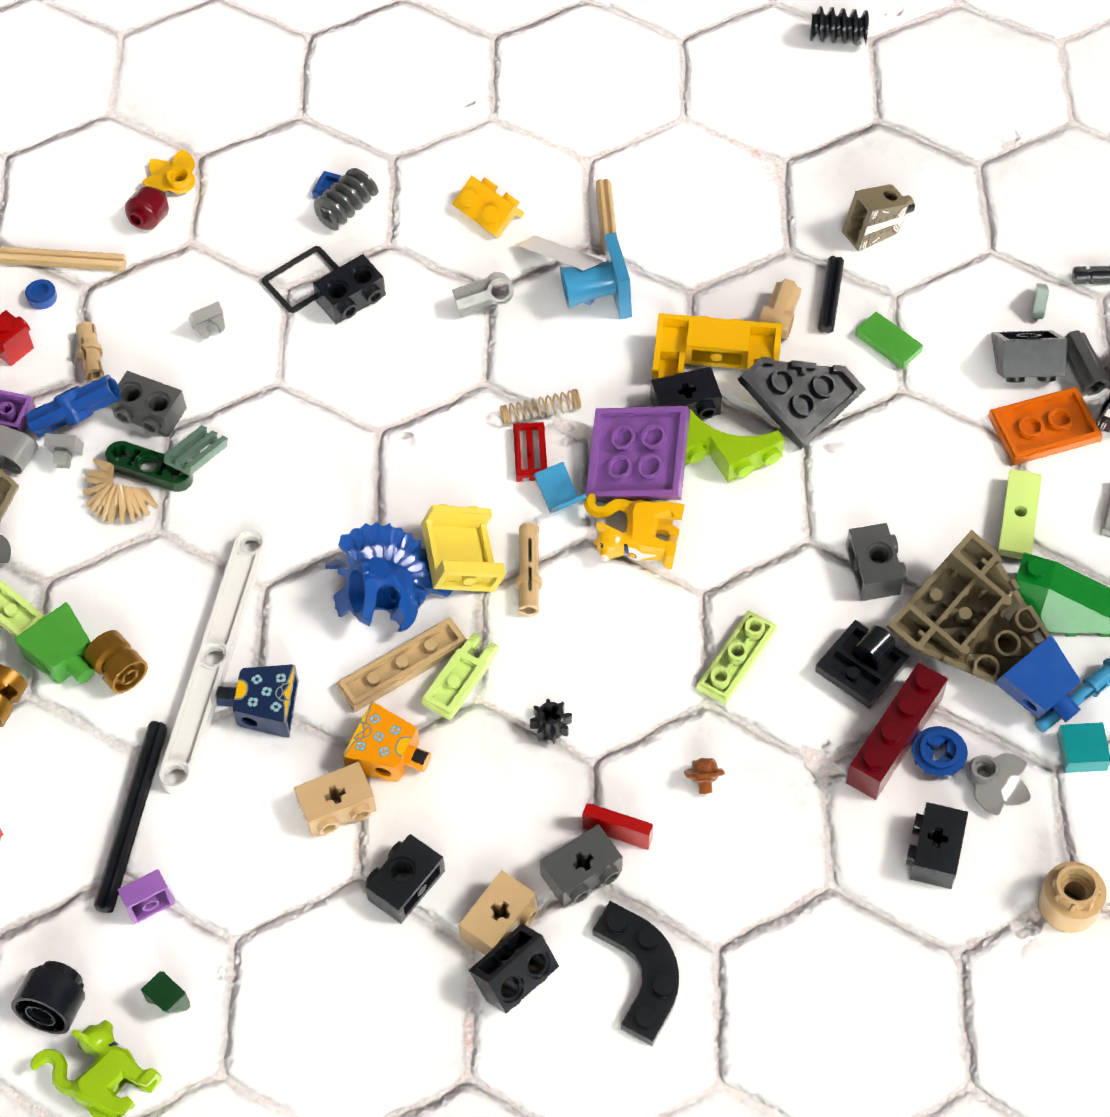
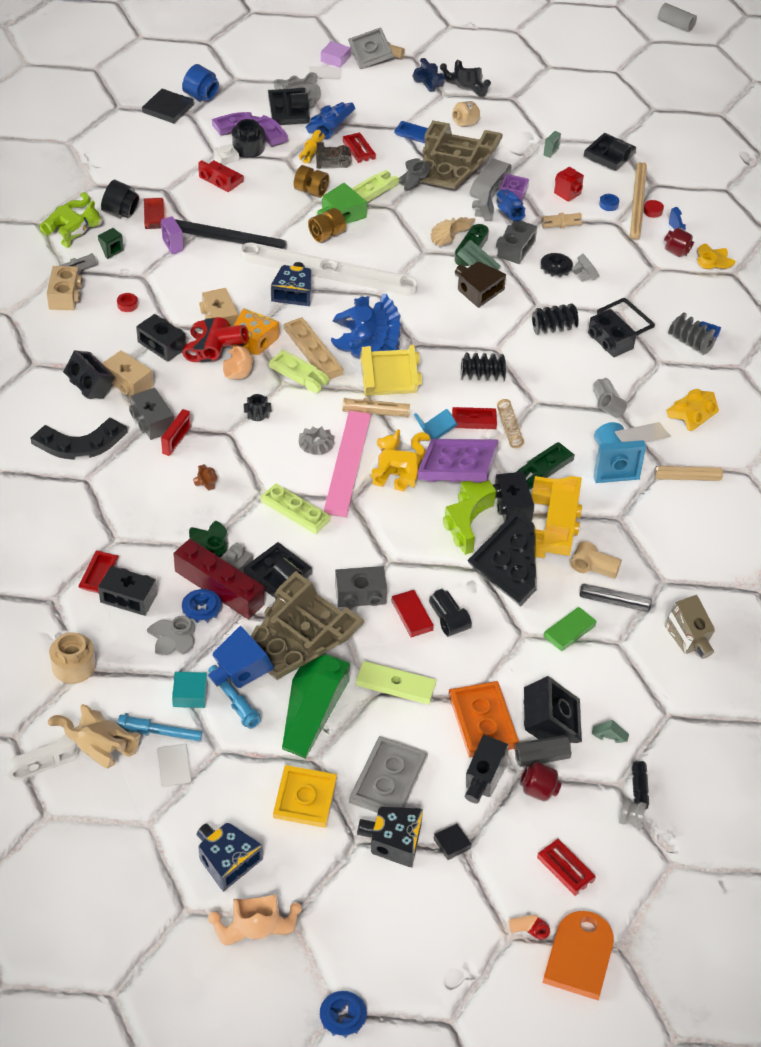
camera: 90 degrees right, 10 degrees down
(58, 238) = (653, 208): none -> red tile
(69, 943) = (153, 212): none -> clear red tile
(93, 211) = (675, 219): none -> blue tile
(196, 347) = (556, 259): none -> black gear
(223, 1050) = (82, 262): none -> light grey pin
(248, 449) = (480, 282): none -> dark brown torso
(288, 1064) = (64, 288): none -> tan brick
(310, 951) = (127, 302): none -> red tile
(328, 353) = (555, 317): none -> black piece
(413, 789) = (215, 335): none -> red connector
(437, 437) = (483, 366): none -> black piece
(462, 757) = (239, 364): none -> light nougat hair
(610, 652) = (320, 446): none -> light grey gear
(615, 365) = (547, 462): none -> dark green hinge
(640, 598) = (347, 464): none -> bright pink tile
(815, 764) = (212, 540): none -> dark green plate
(846, 721) = (237, 556): none -> light grey tile
(900, 505) = (412, 613): none -> red tile
(903, 458) = (452, 618): none -> black piece
(904, 894) = (96, 570): none -> red tile

